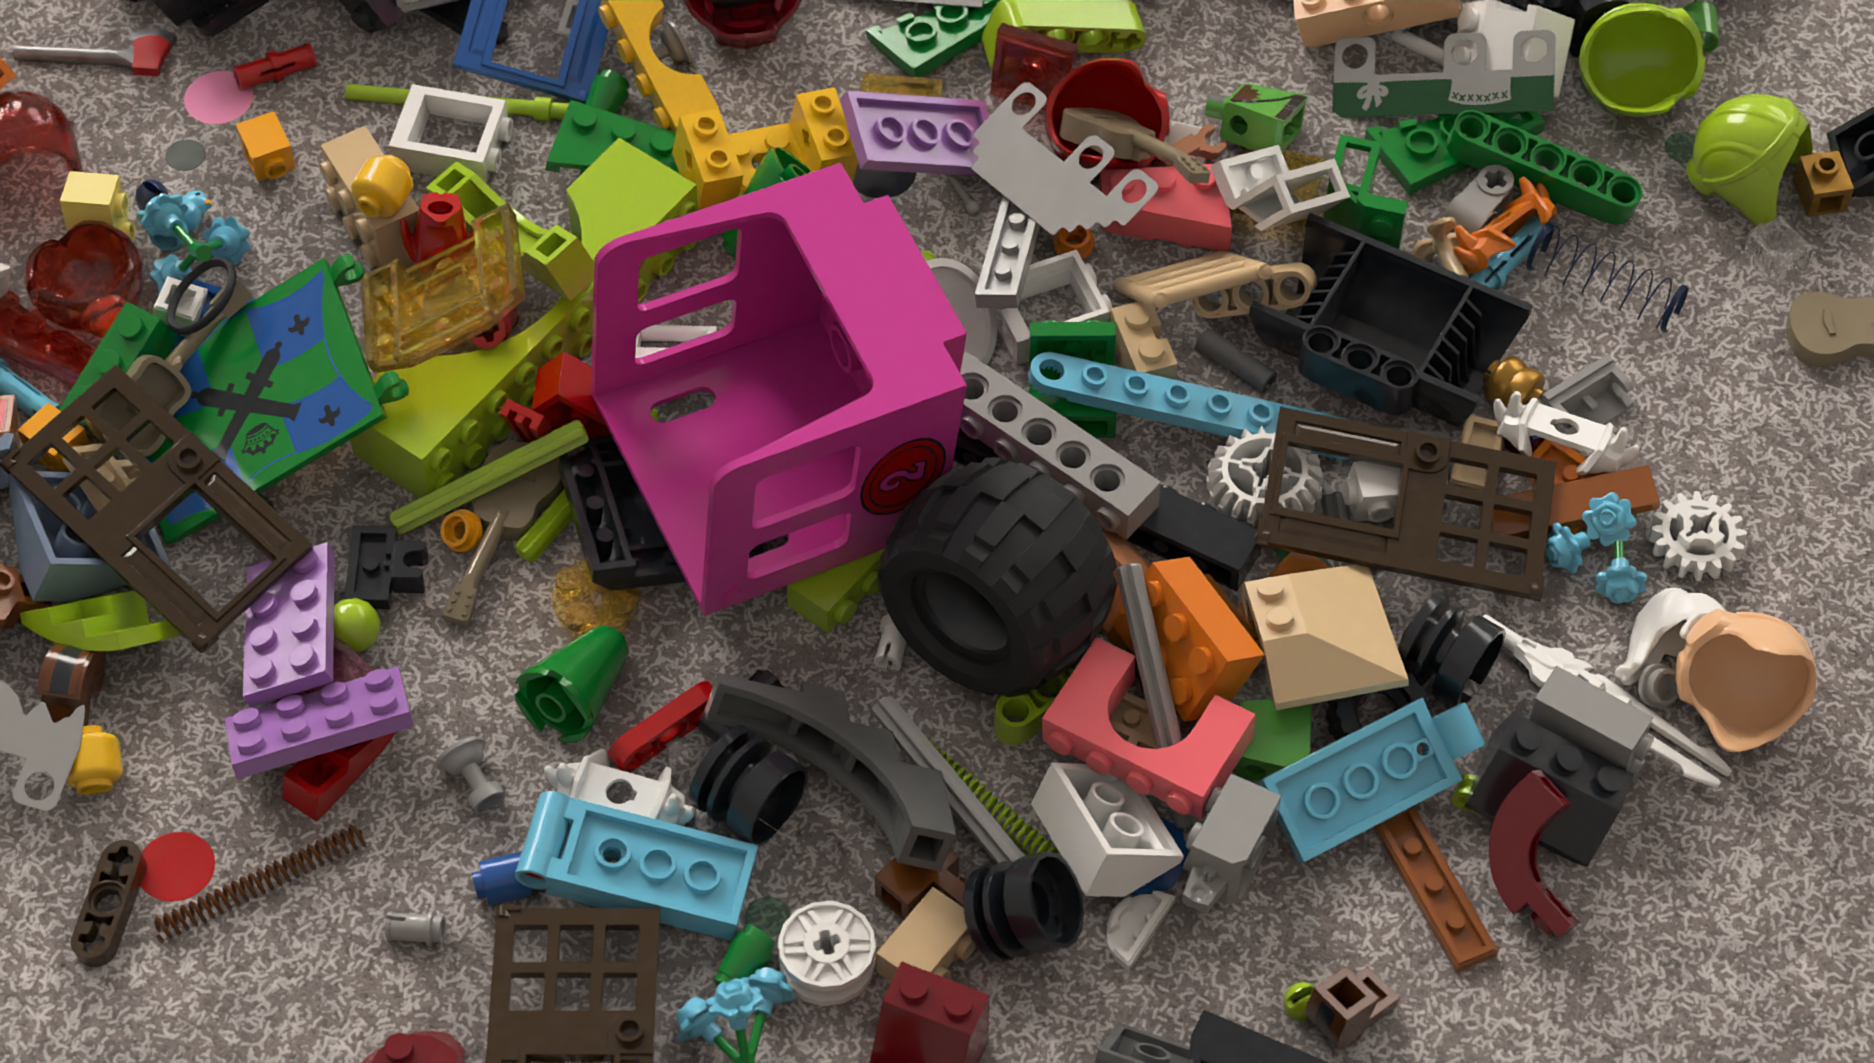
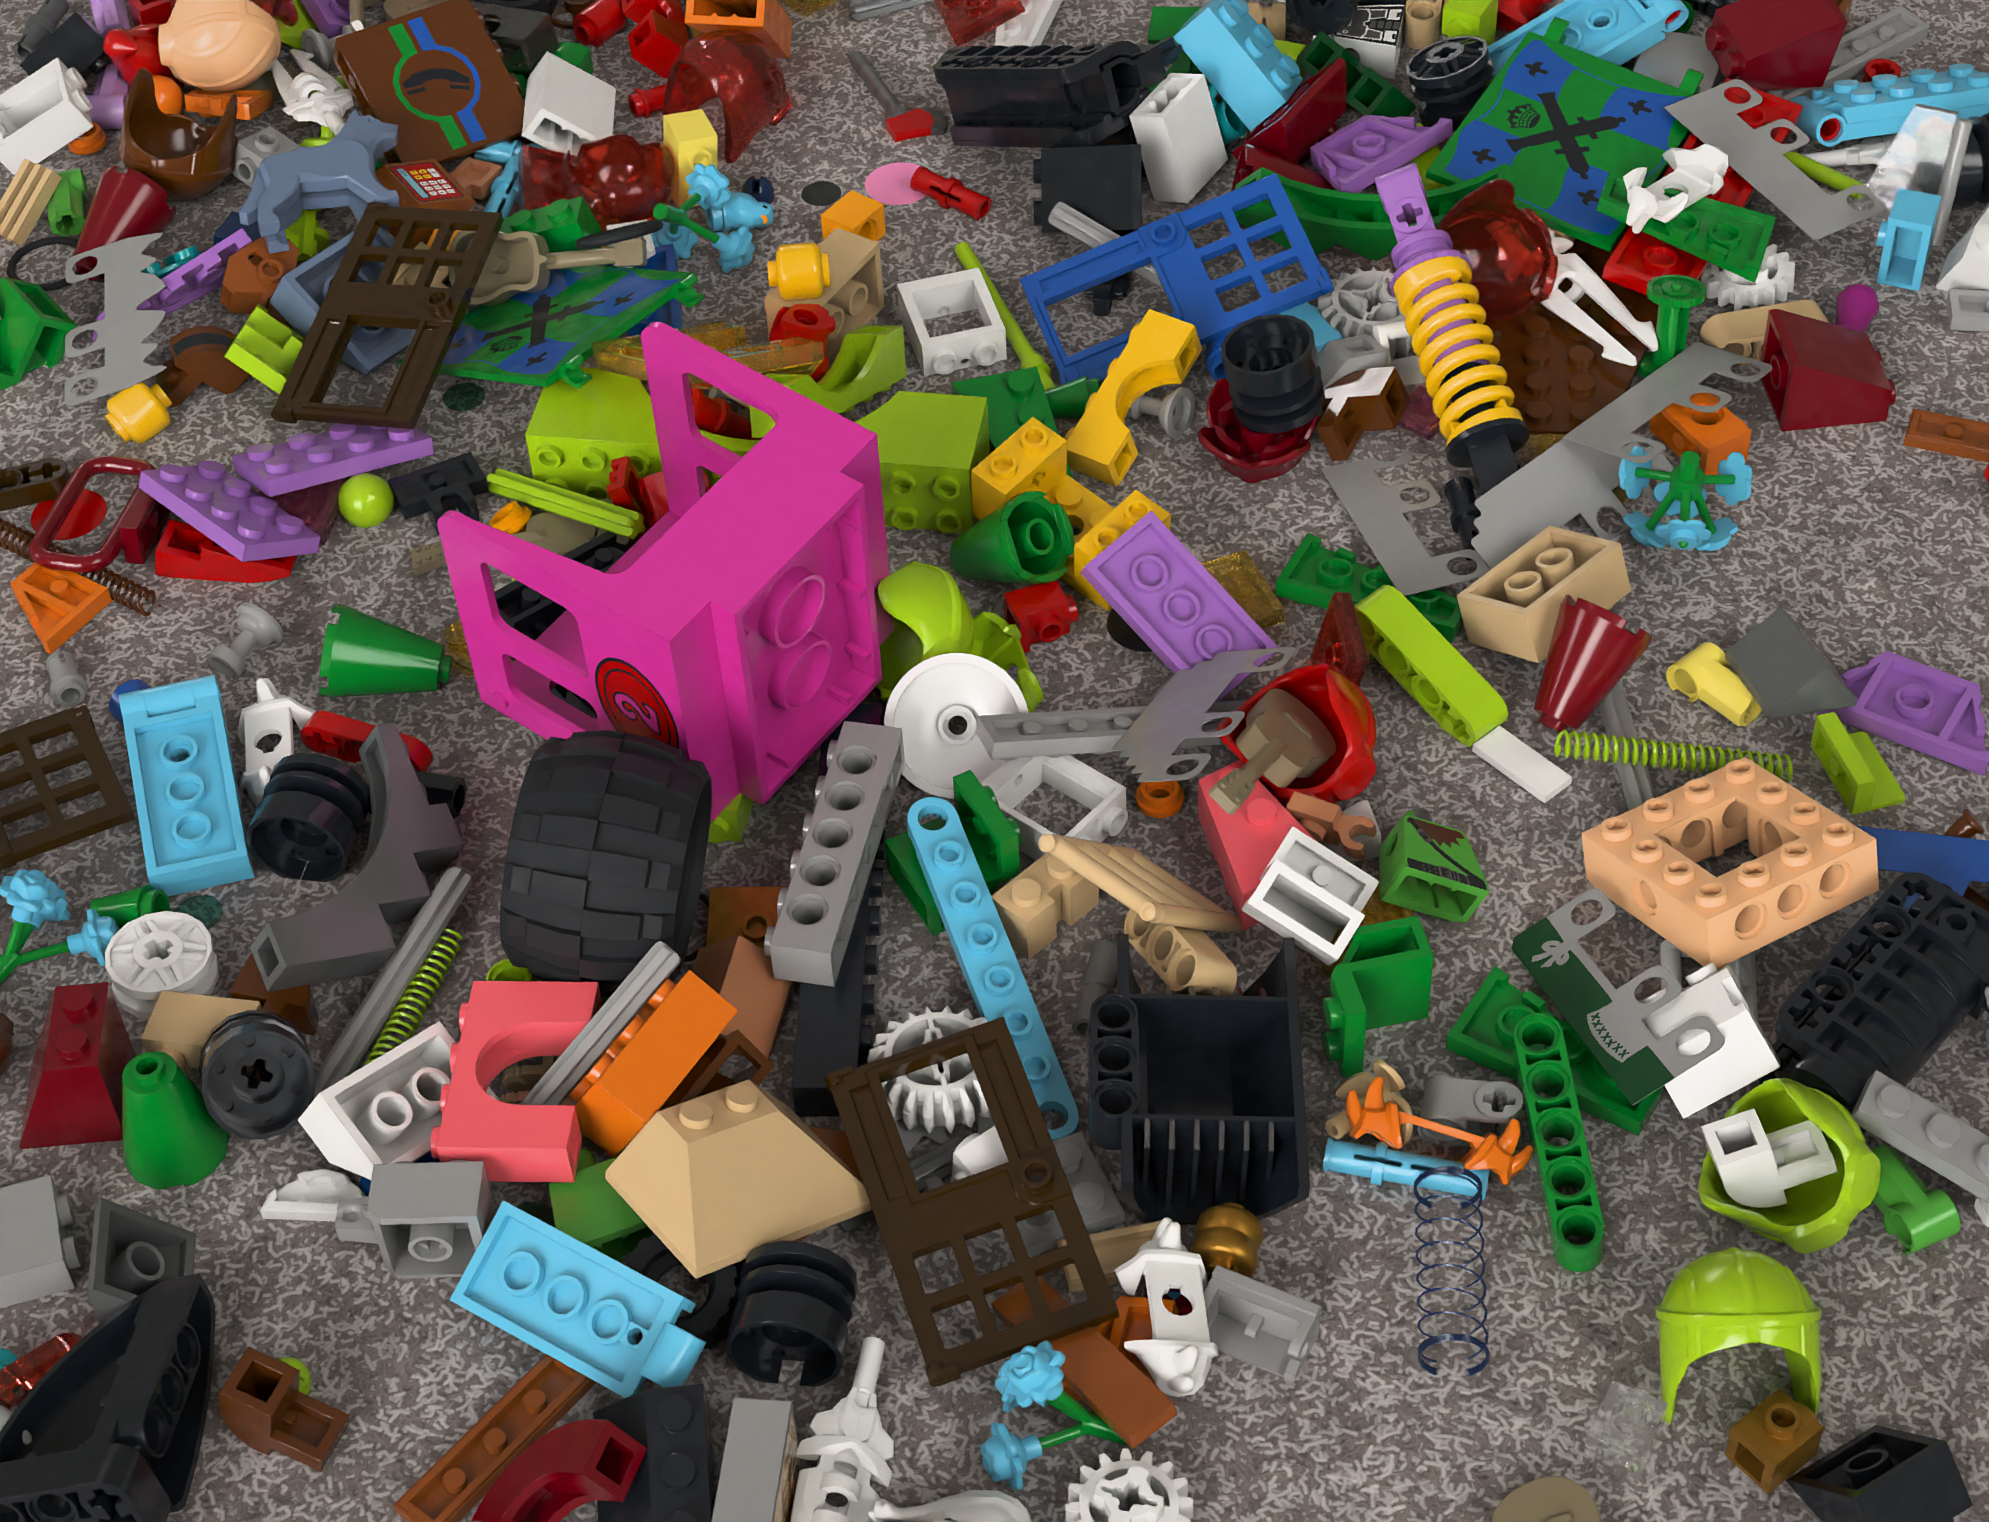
camera: 65 degrees right, 10 degrees down
(245, 800) = (133, 531): none -> dark red bar
(305, 906) = (58, 603): none -> orange wing
(1023, 998) = (167, 1125): none -> green cone
(1182, 26) = (1522, 764): none -> white piece
(1633, 65) = (1762, 1165): none -> white brick

